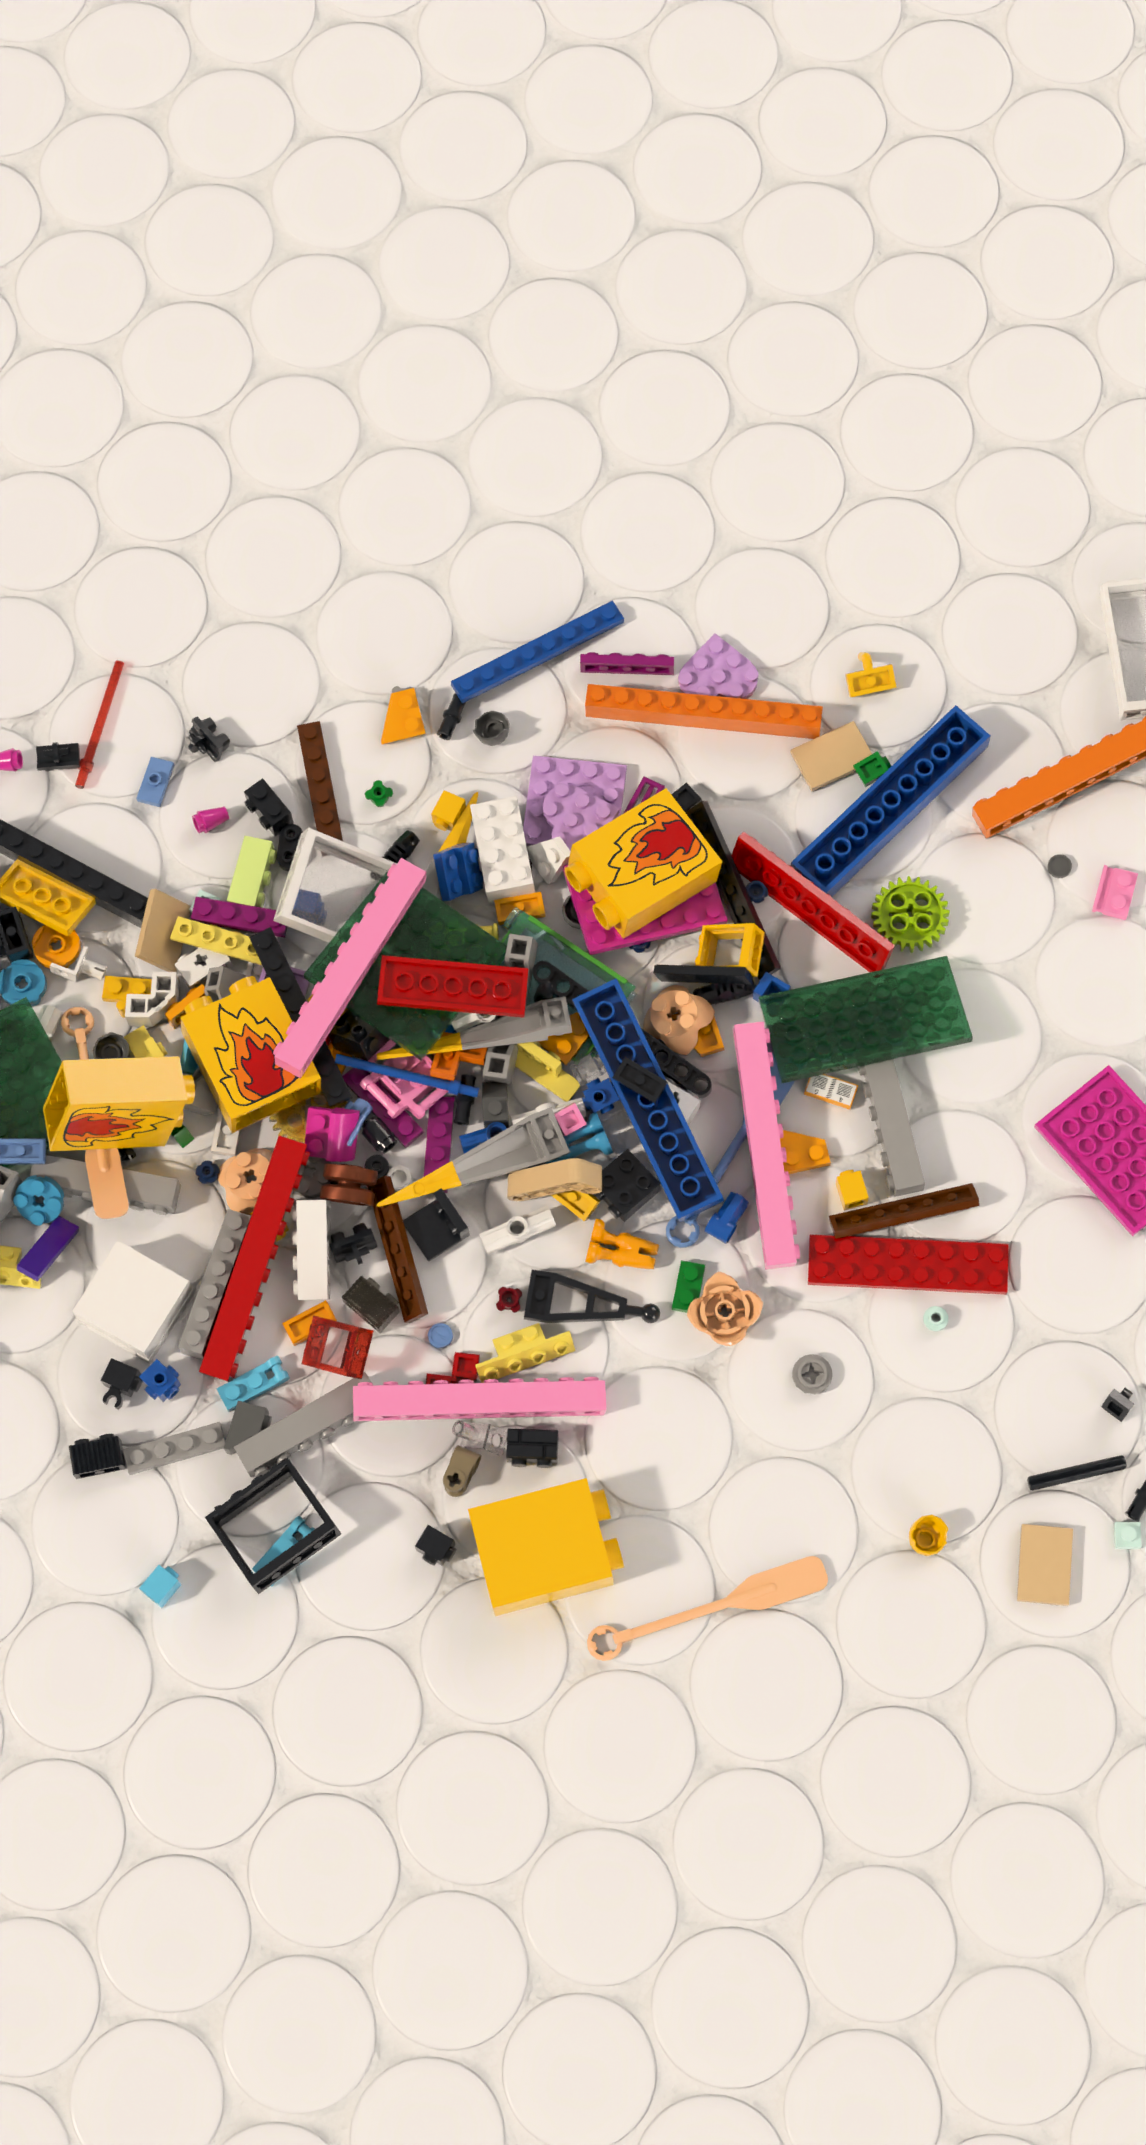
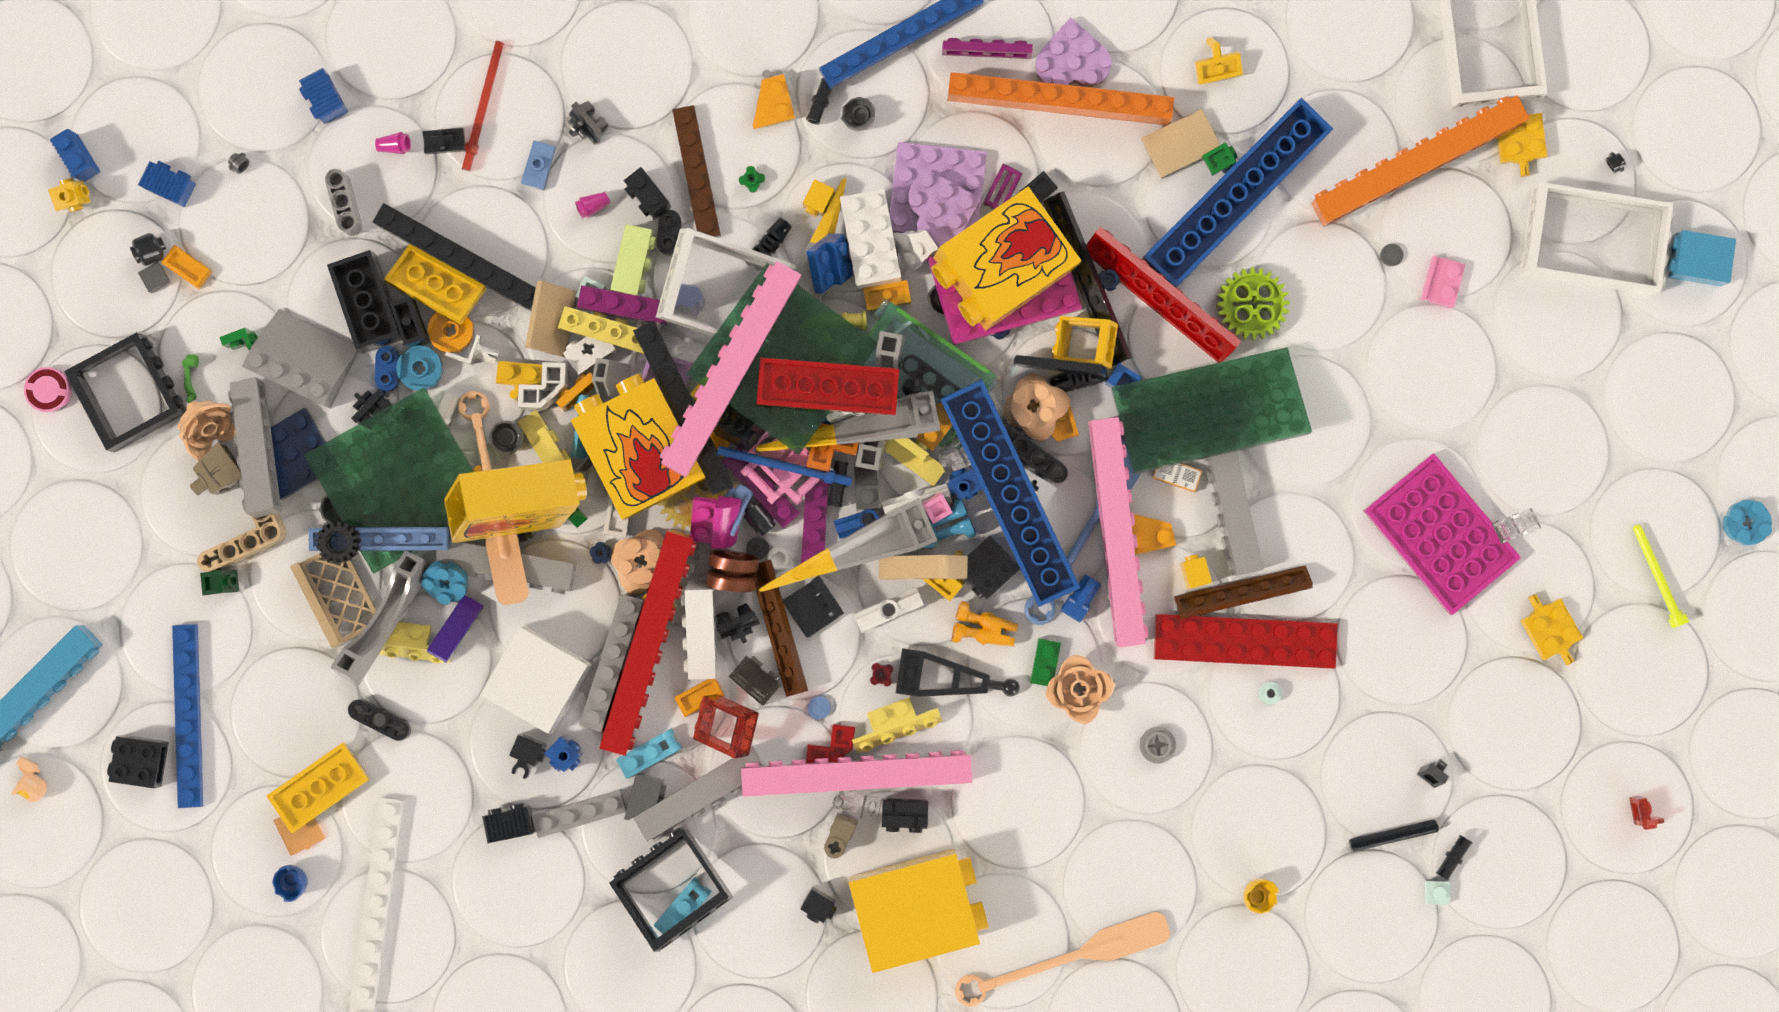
camera: 10 degrees left, 15 degrees up
(161, 1585) = (571, 942): medium azure brick -> none
(640, 1080) = (1004, 479): black plate -> none
(1045, 1565) = (1363, 919): tan tile -> none

